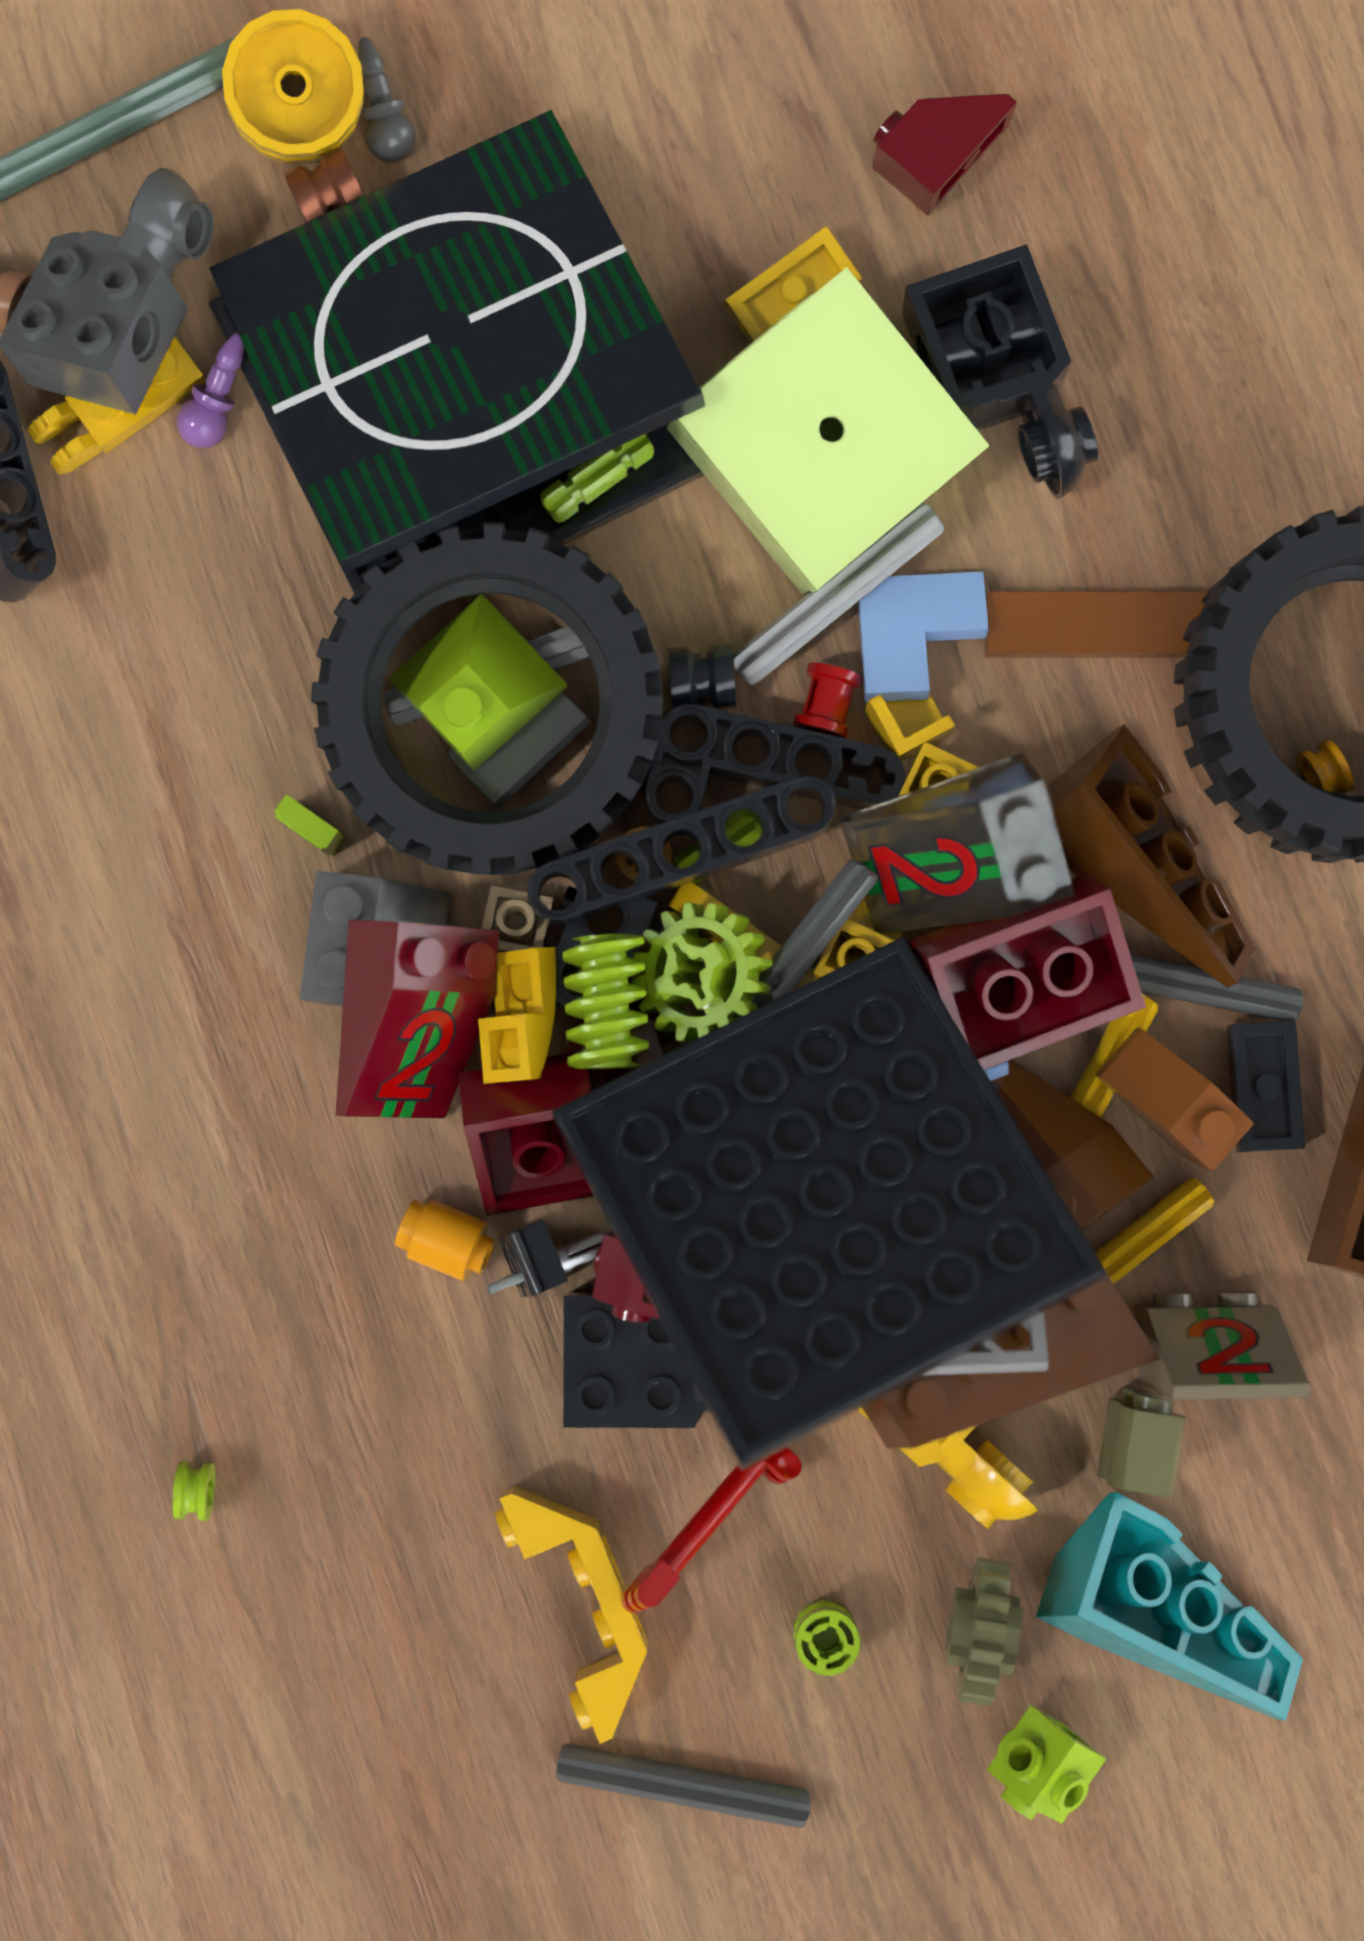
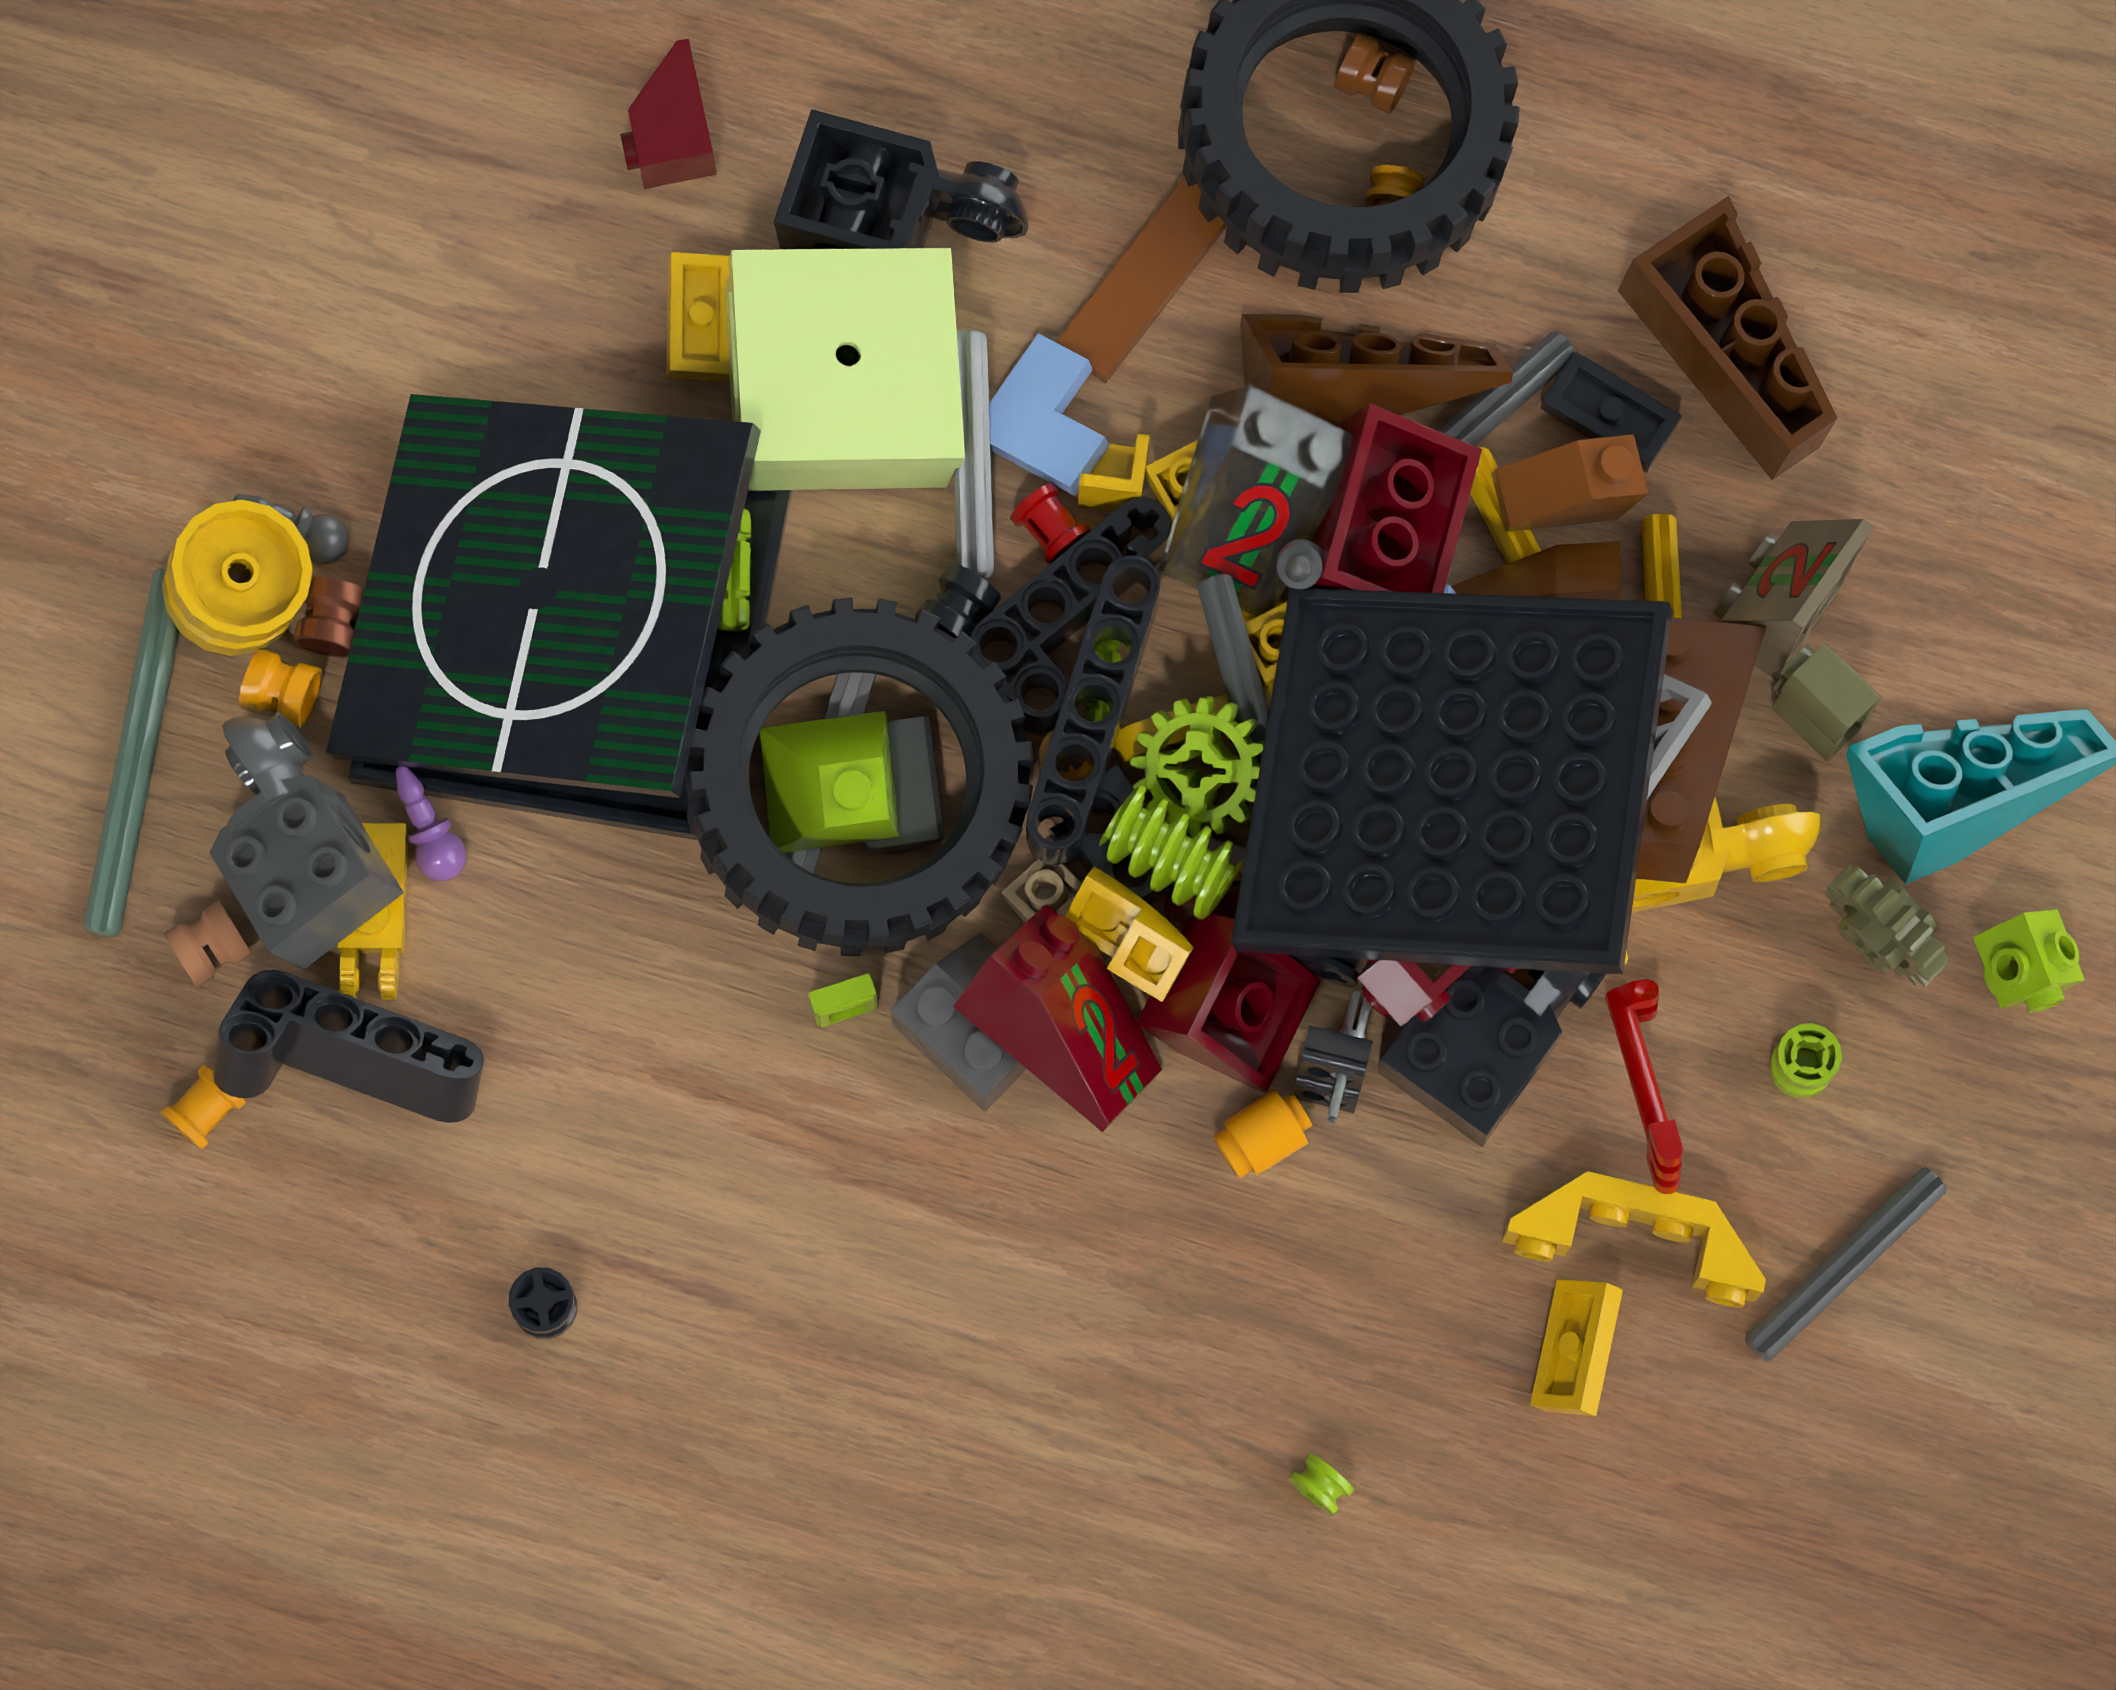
camera: 55 degrees left, 10 degrees down
(237, 189) = (280, 687): none -> light orange wheel
(452, 1617) = (1576, 1347): none -> yellow plate
(928, 930) = (1299, 564): none -> dark grey bar

